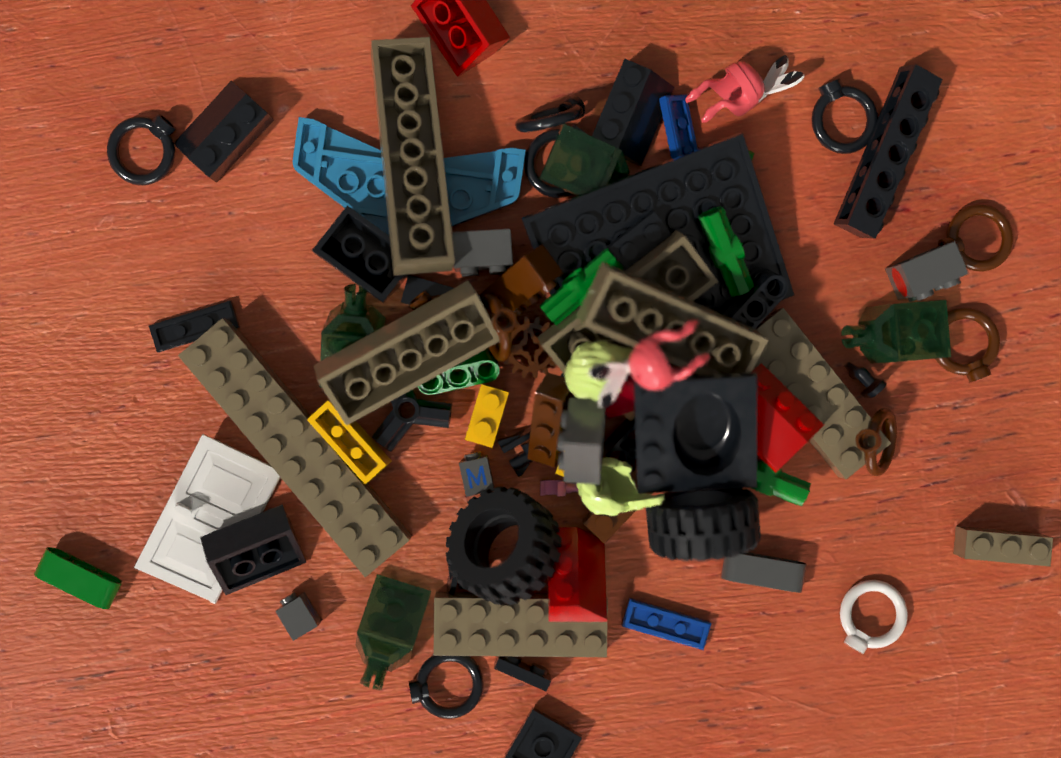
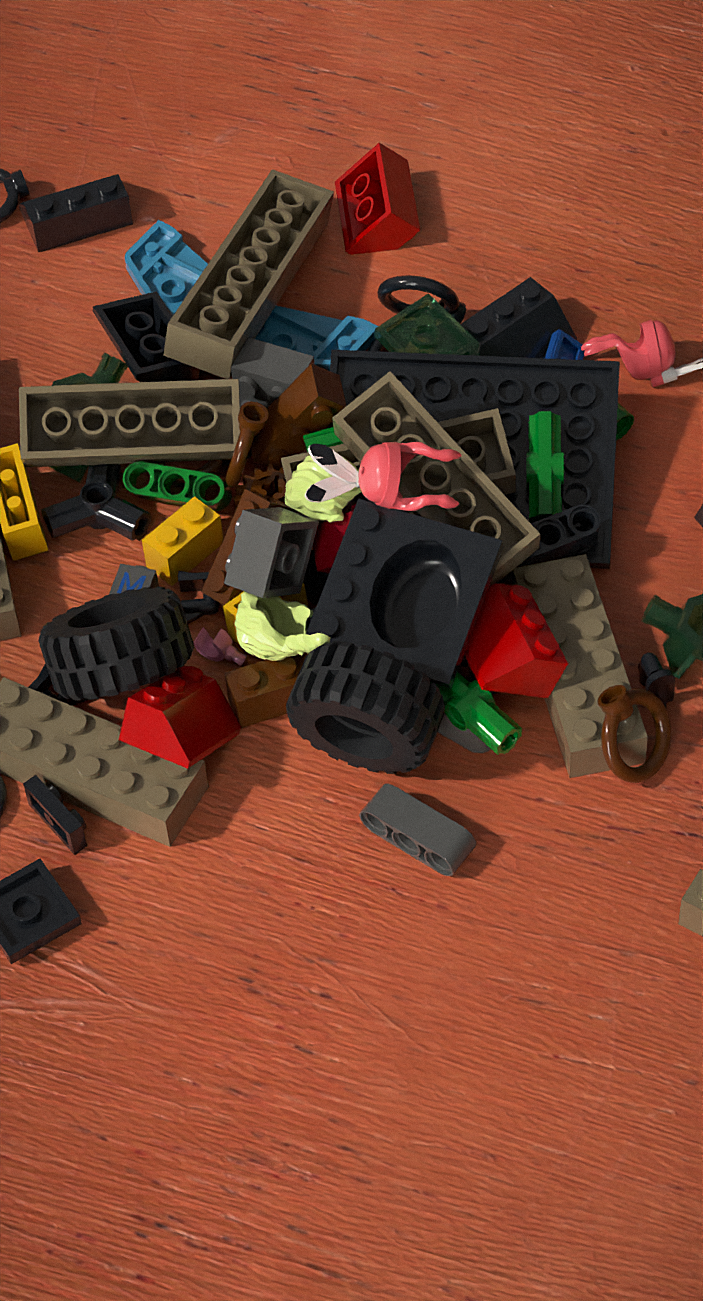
camera: 30 degrees right, 35 degrees down
(666, 623) = (263, 845): blue tile -> none
(858, 639) = (499, 960): white piece -> none

